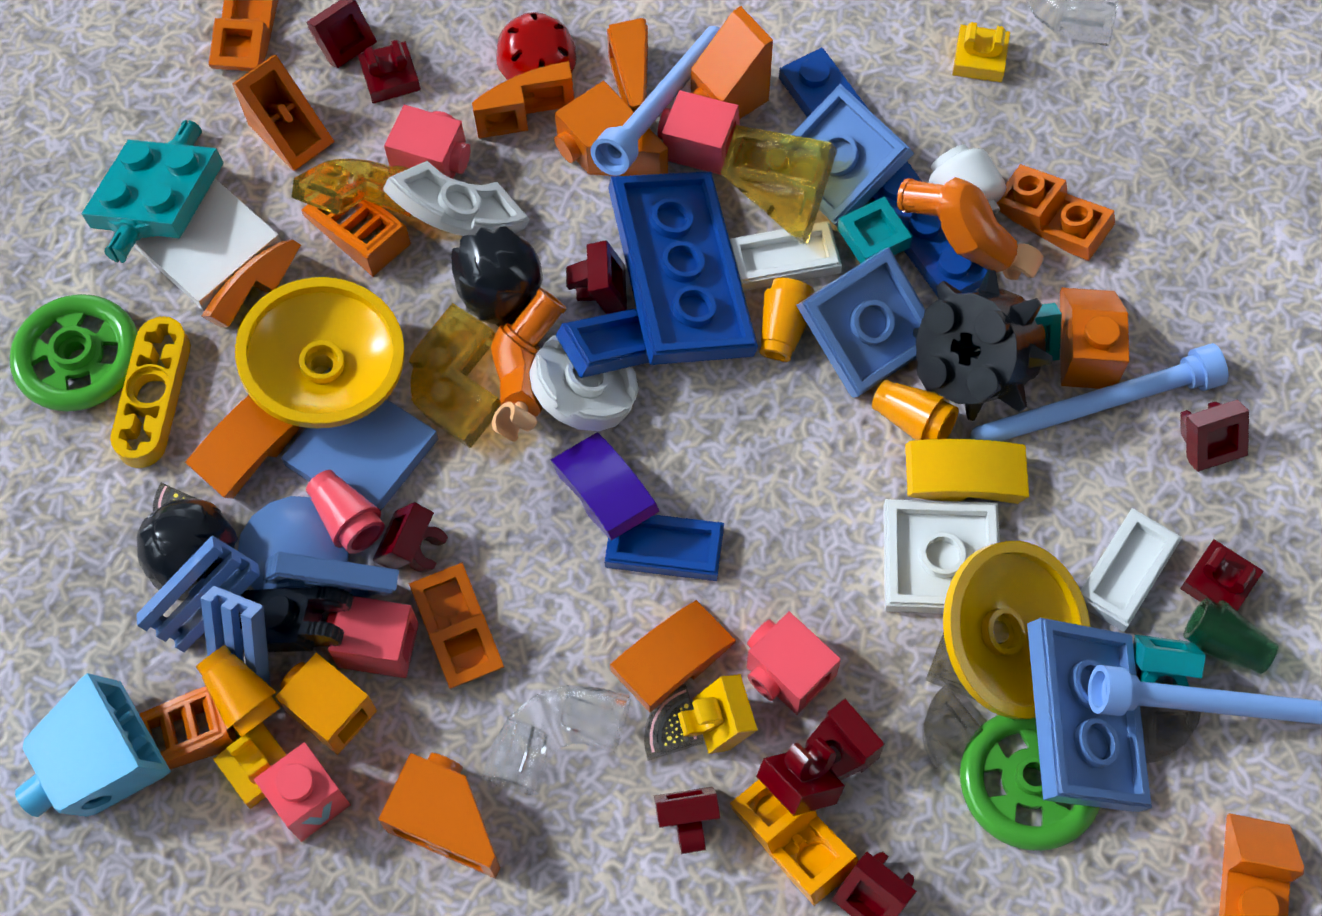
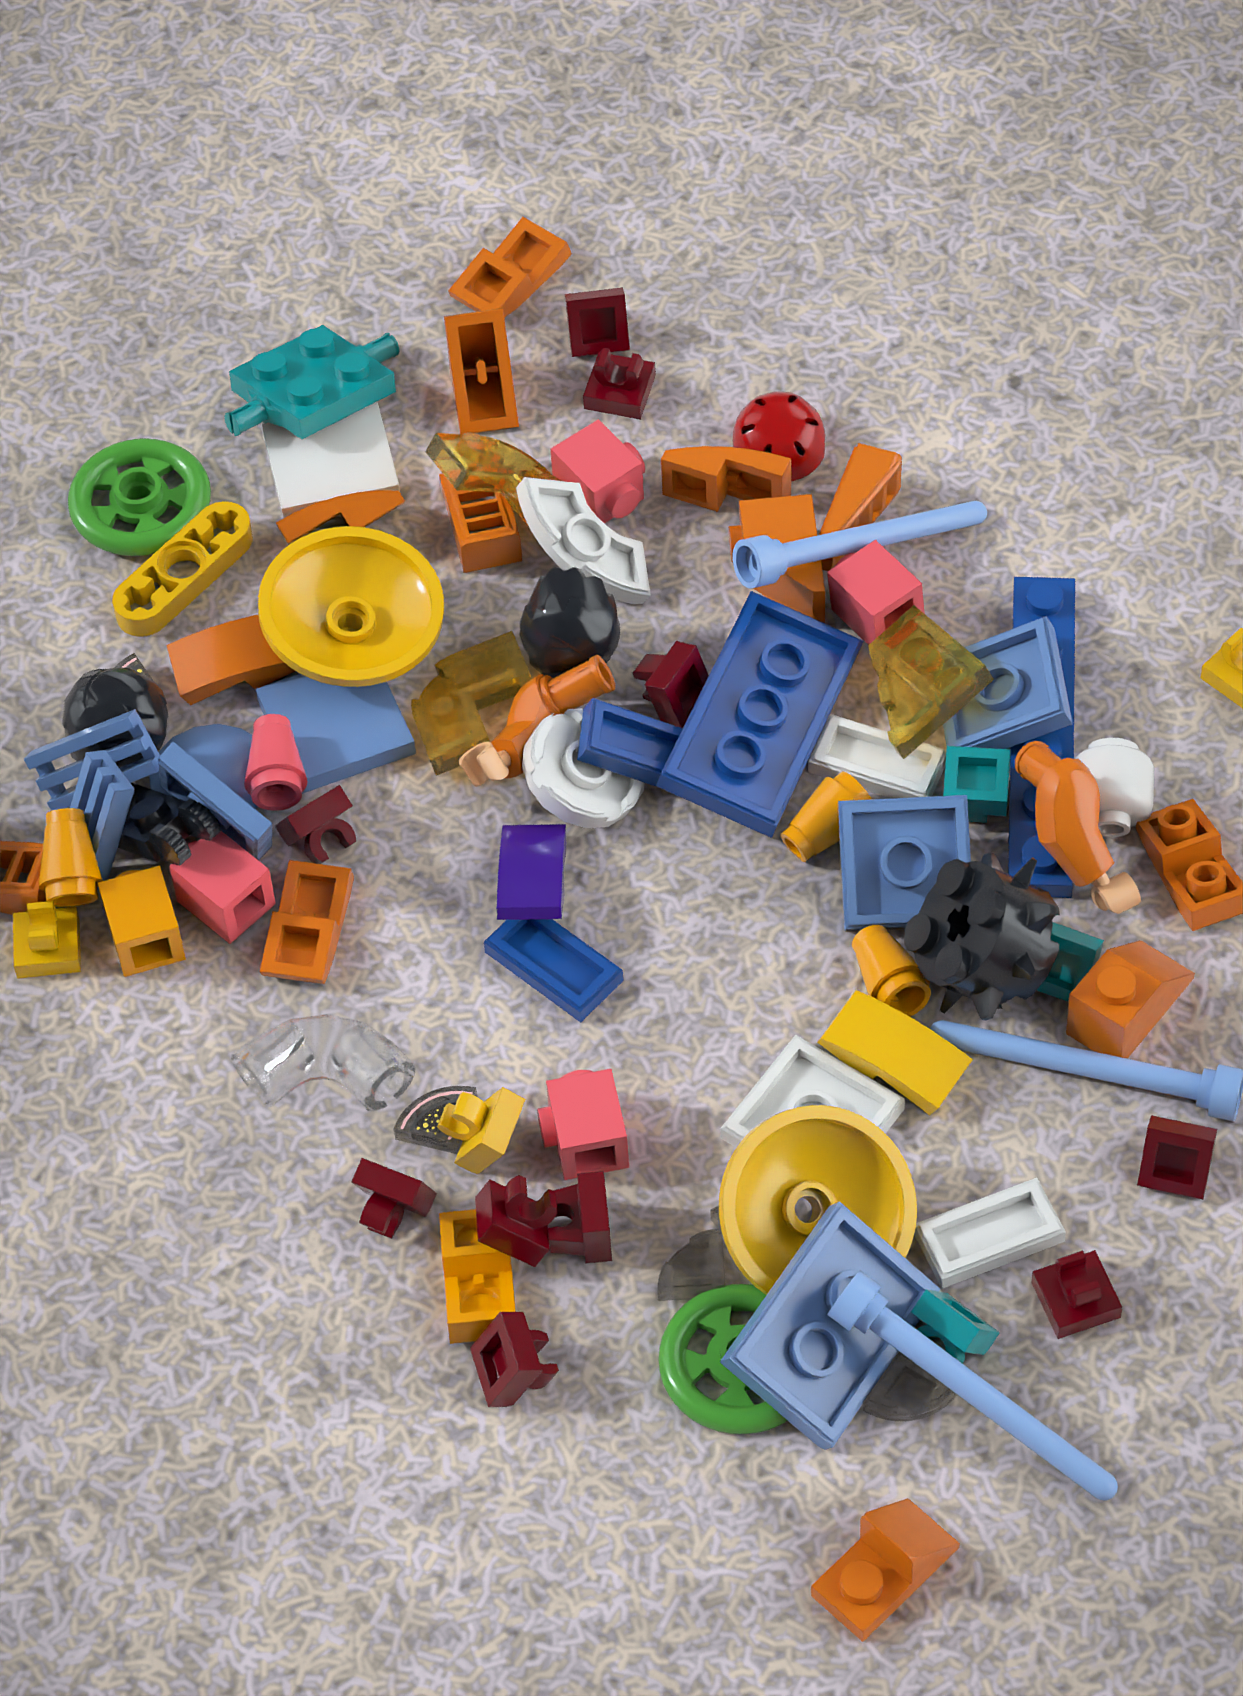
camera: 35 degrees right, 10 degrees down
(302, 792) = (67, 980): coral brick -> none
(439, 813) = (173, 1067): orange slope -> none
(671, 654) = (483, 1053): orange slope -> none
(736, 64) = (951, 551): orange slope -> none
(1229, 636) = (1035, 1343): clear green cone -> none

